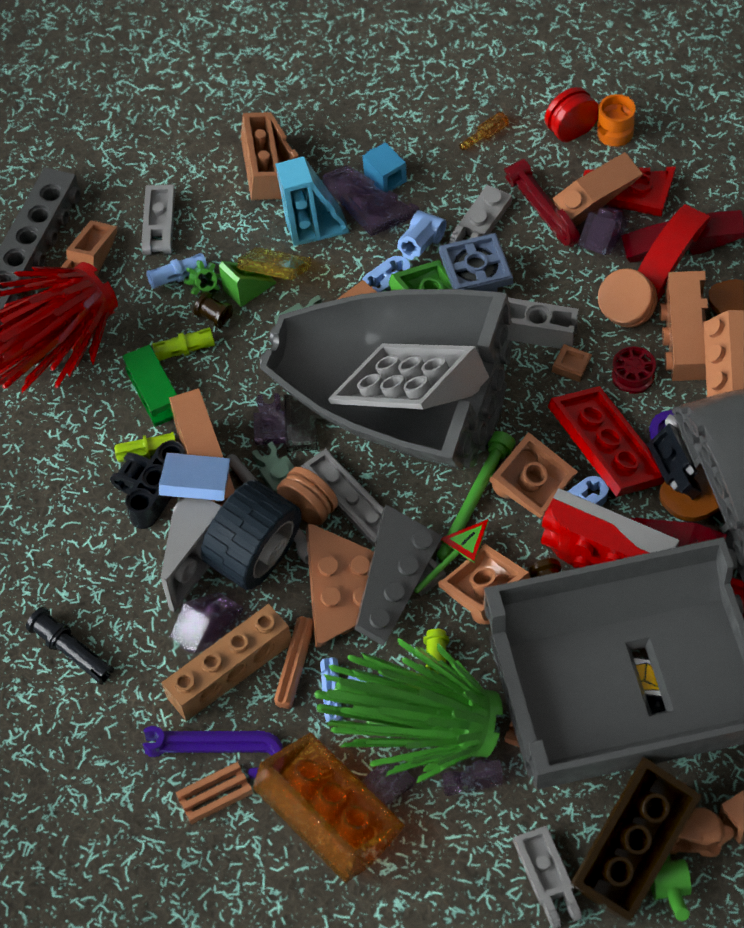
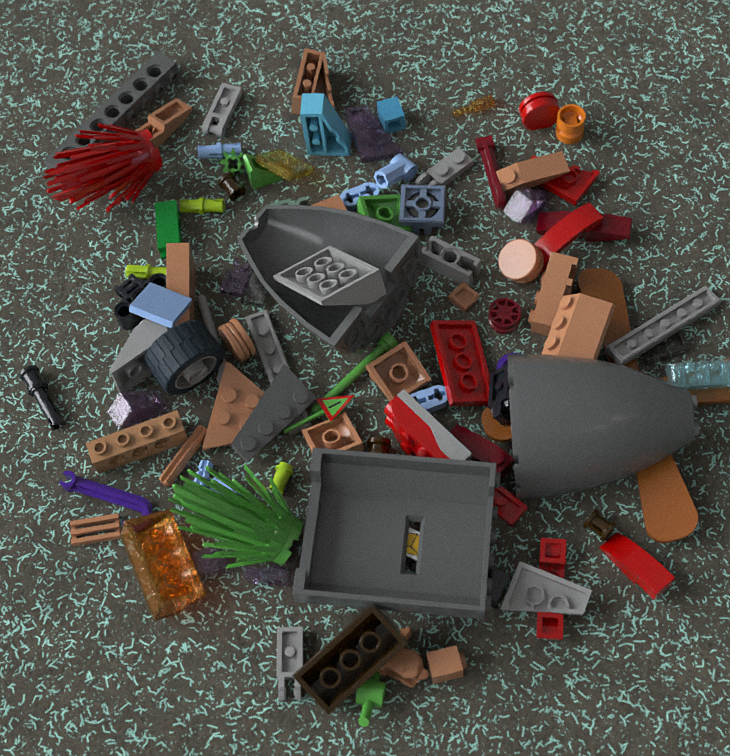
camera: 20 degrees right, 5 degrees up
(273, 468) = (227, 311): sand green plate -> none

